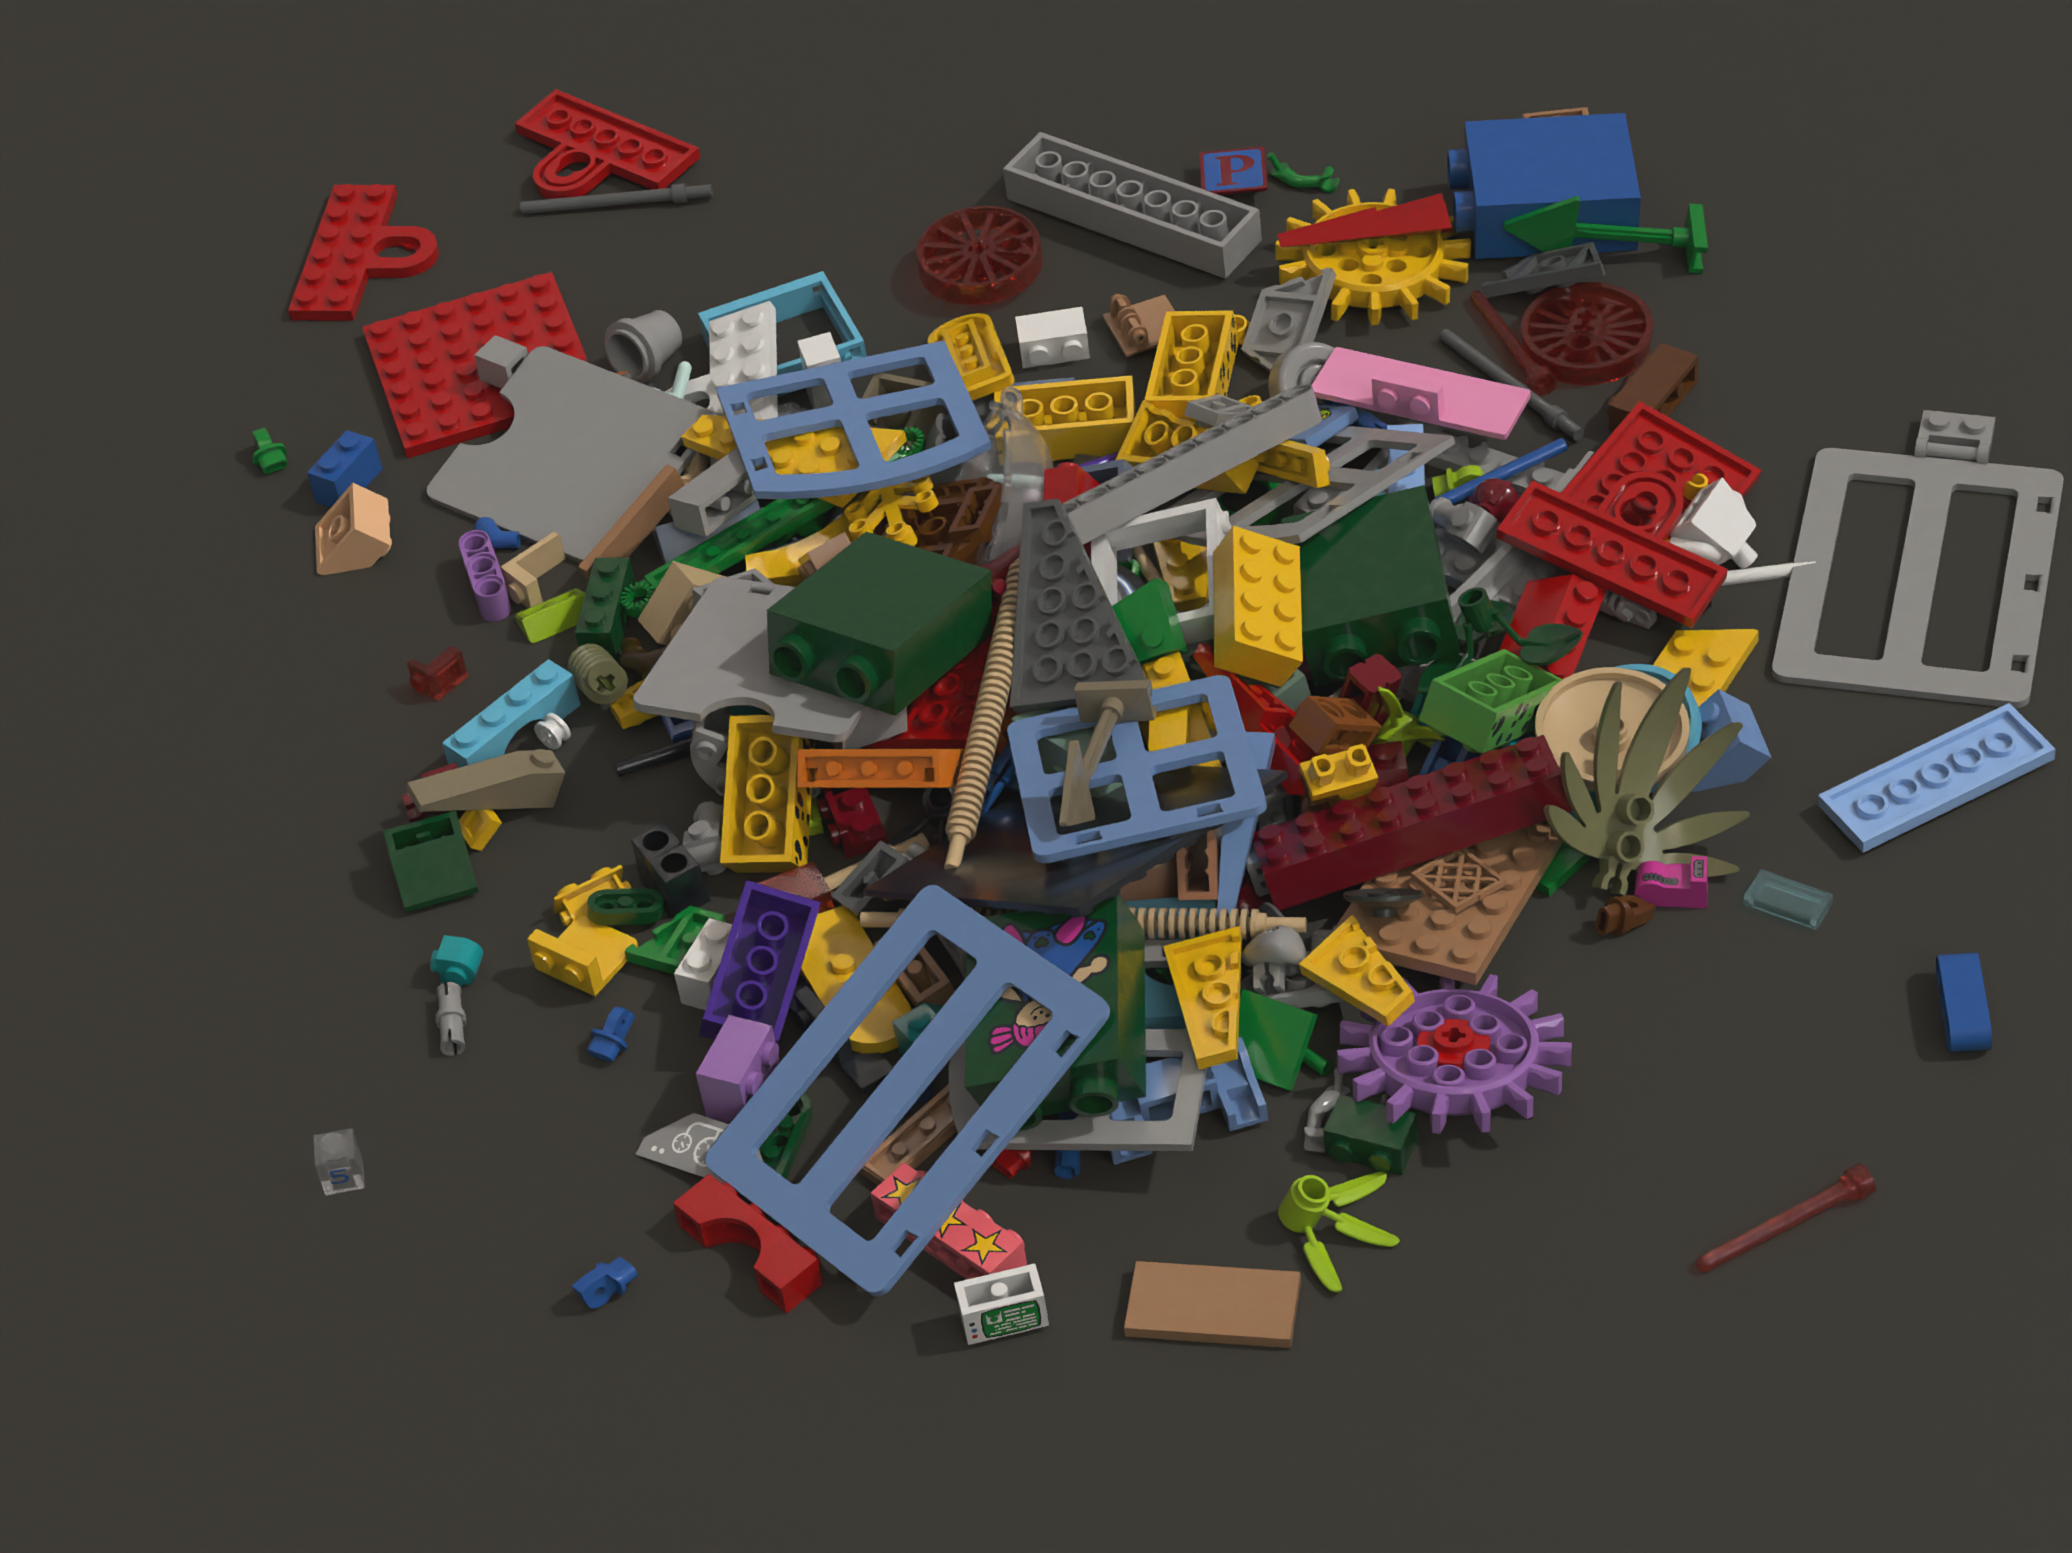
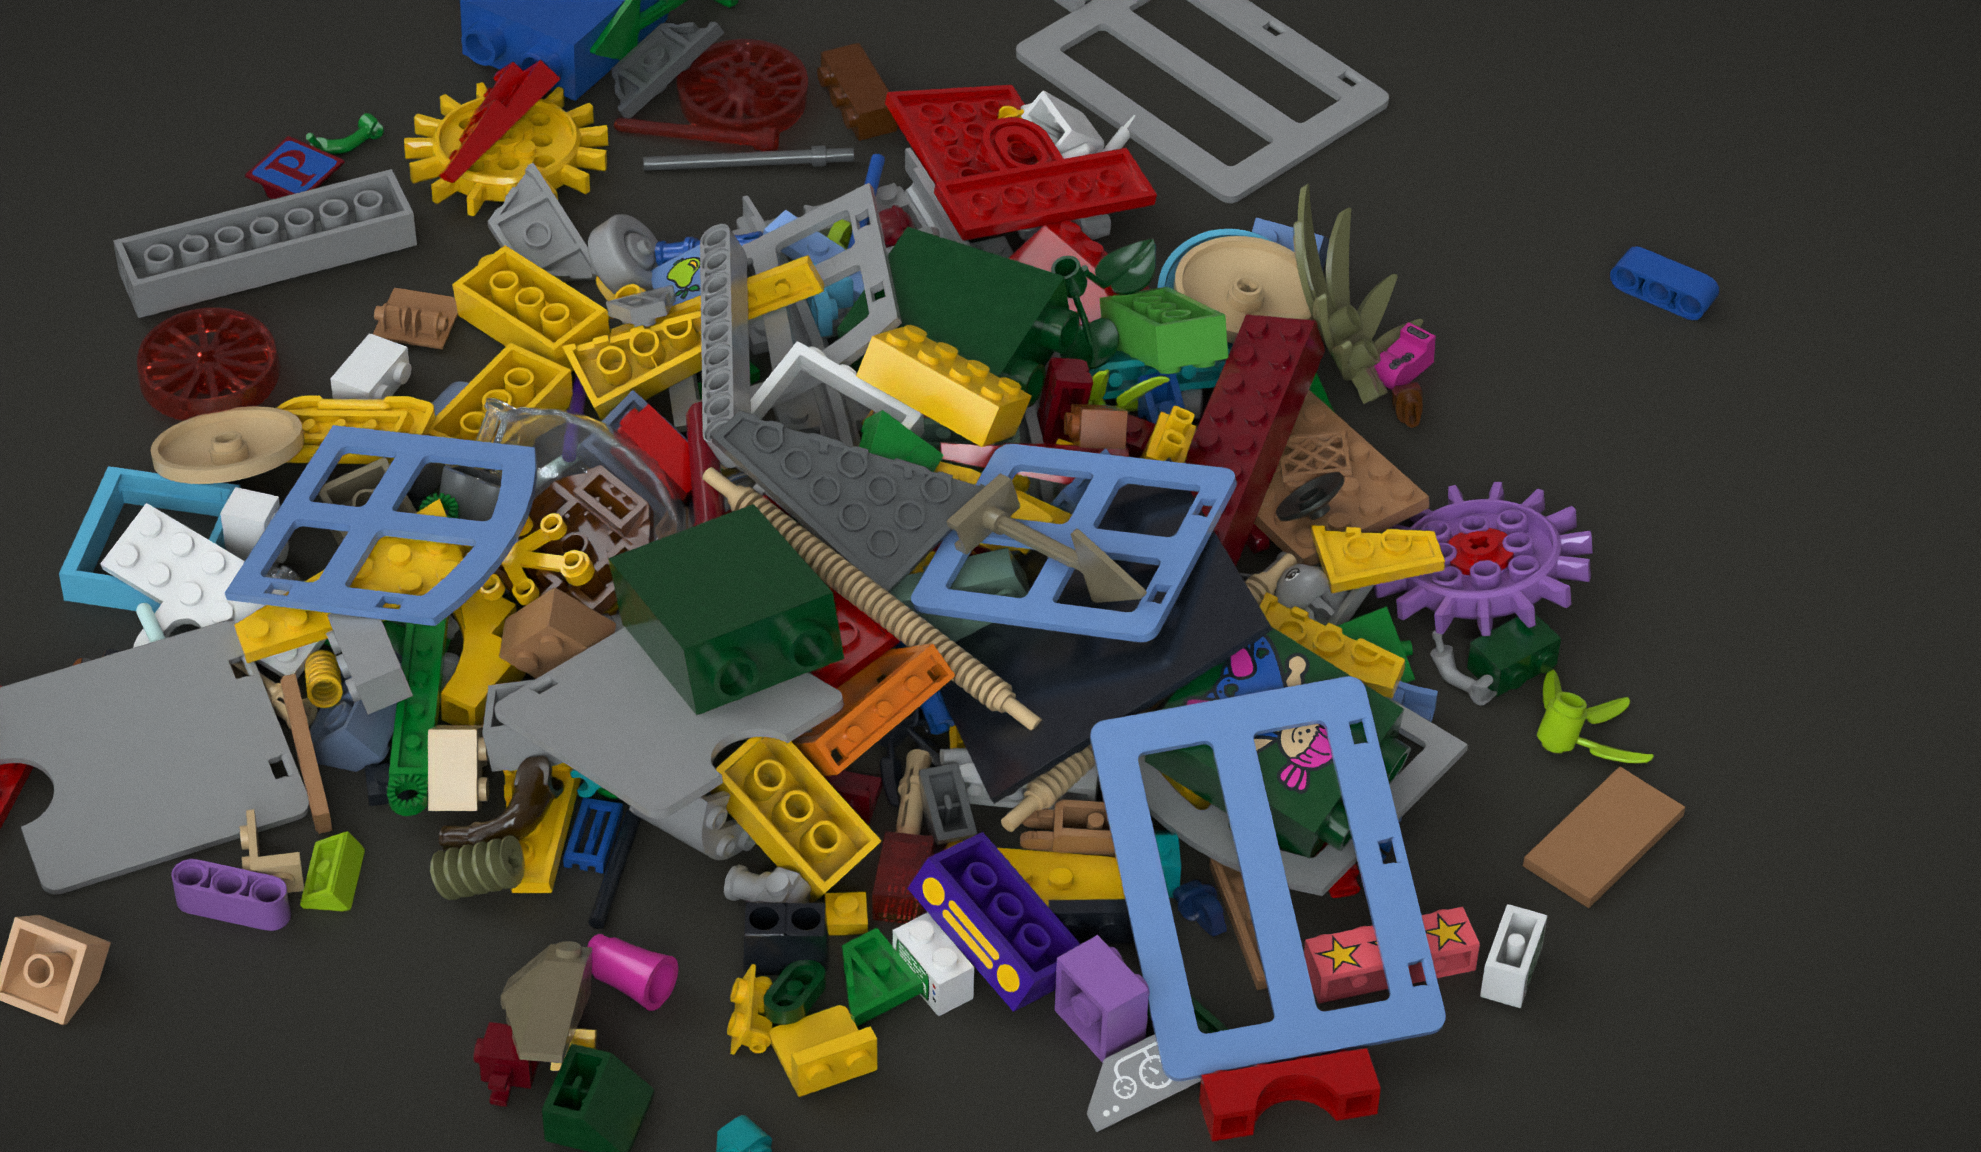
camera: 65 degrees left, 0 degrees up
(439, 675) = (331, 997): clear red bracket -> none
(488, 733) = (465, 961): medium azure arch -> none
(498, 538) = (161, 865): blue arm -> none
(552, 731) = (503, 942): white bush -> none
(574, 811) = (634, 970): none -> dark pink plant
(602, 614) = (385, 827): dark green brick -> none
(610, 1040) = (947, 1085): blue piece -> none
(642, 344) = (50, 633): light grey piece -> none
(729, 891) = (846, 913): none -> yellow plate
(892, 309) = (227, 445): none -> tan dish
(1421, 393) = (737, 196): bright pink bracket -> none
(1710, 654) = (1173, 220): yellow wing -> none
(1788, 899) = (1472, 314): clear light blue tile -> none
(1854, 1183) = (1789, 430): clear red piece -> none
(1936, 777) = (1427, 178): light blue plate -> none

